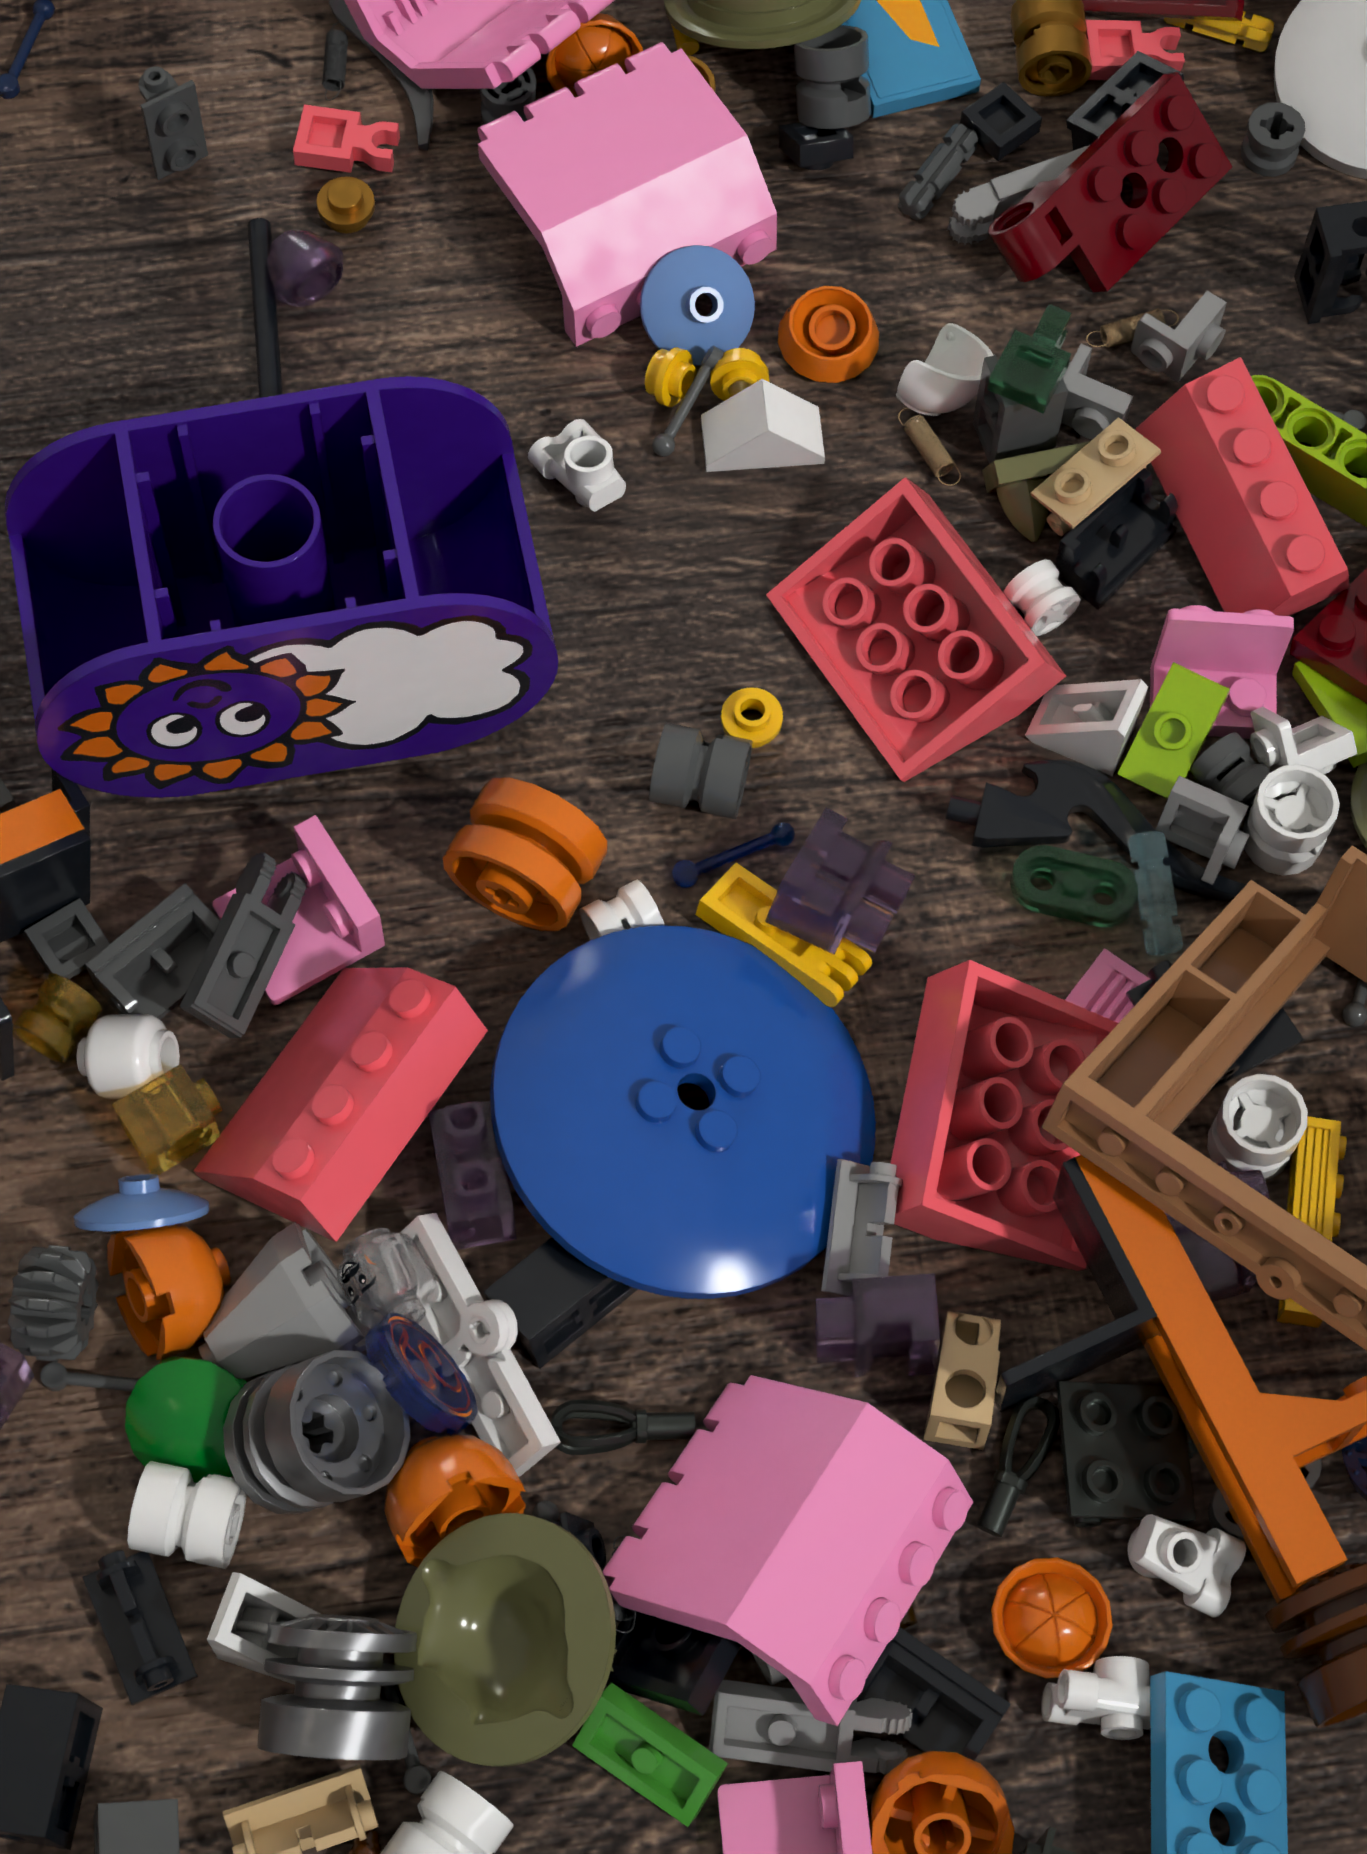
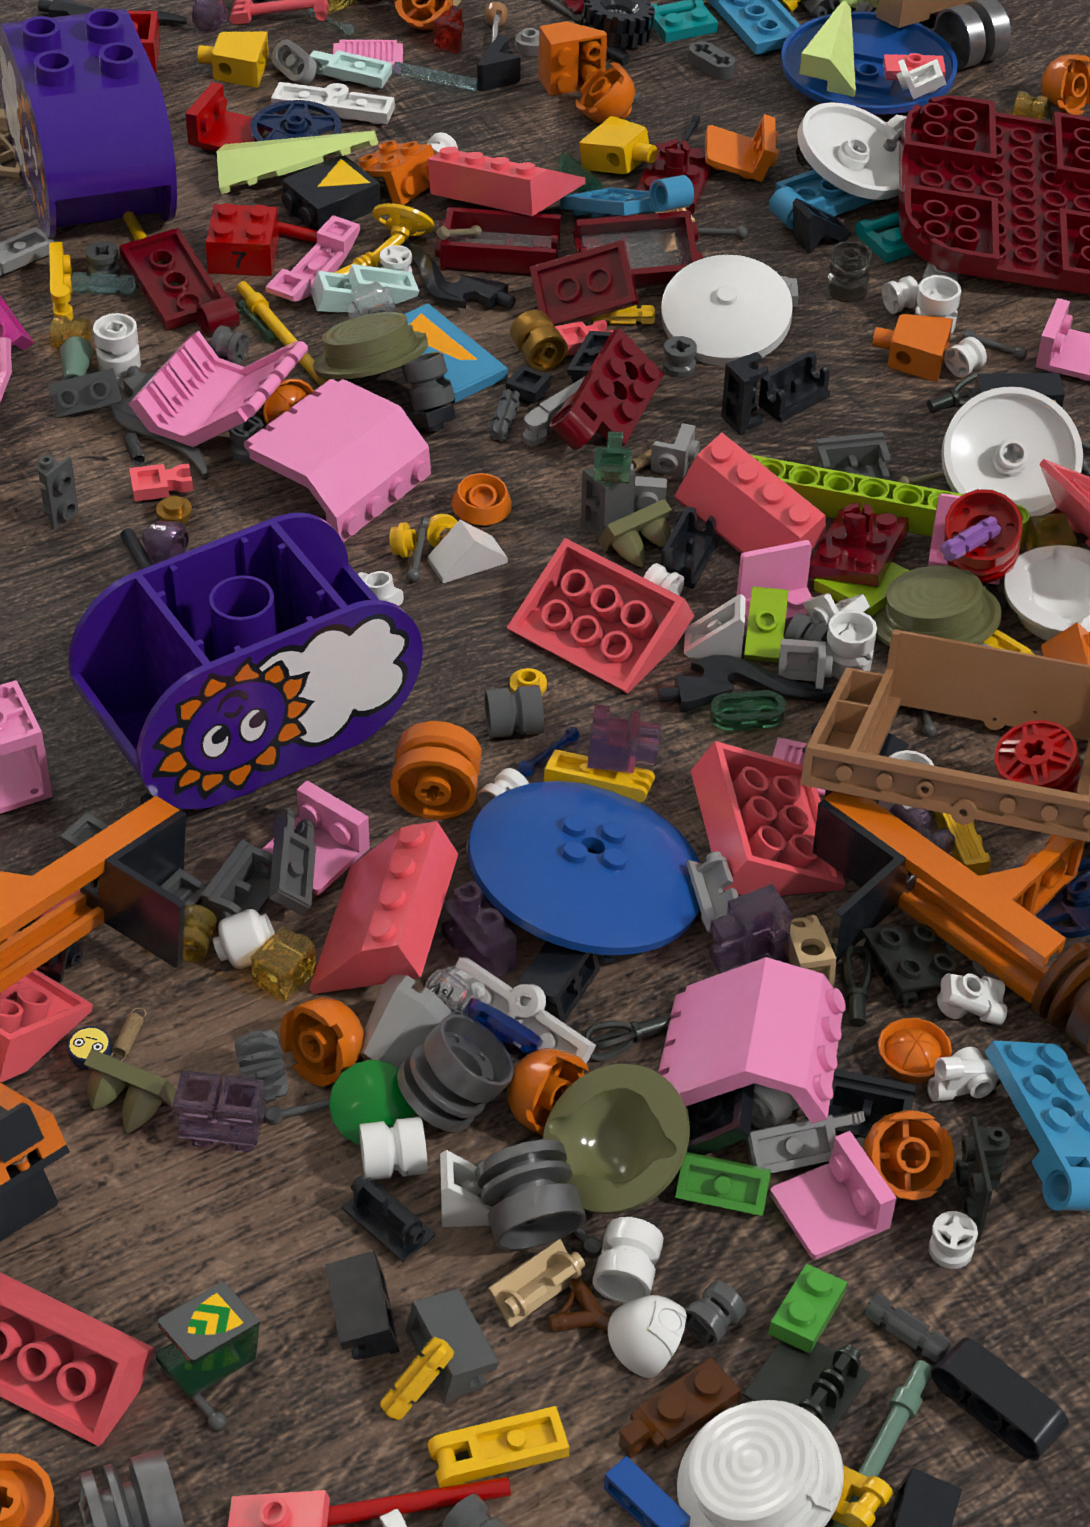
camera: 20 degrees left, 20 degrees down
(140, 1206) = (288, 997): medium blue dish -> none
(671, 295) = (389, 502): medium blue dish -> none
(929, 446) = (558, 534): tan piece -> none
(947, 376) = (558, 498): white helmet -> none
(1094, 475) = (664, 518): tan hinge -> none
(1155, 893) = (796, 701): clear light blue axle -> none

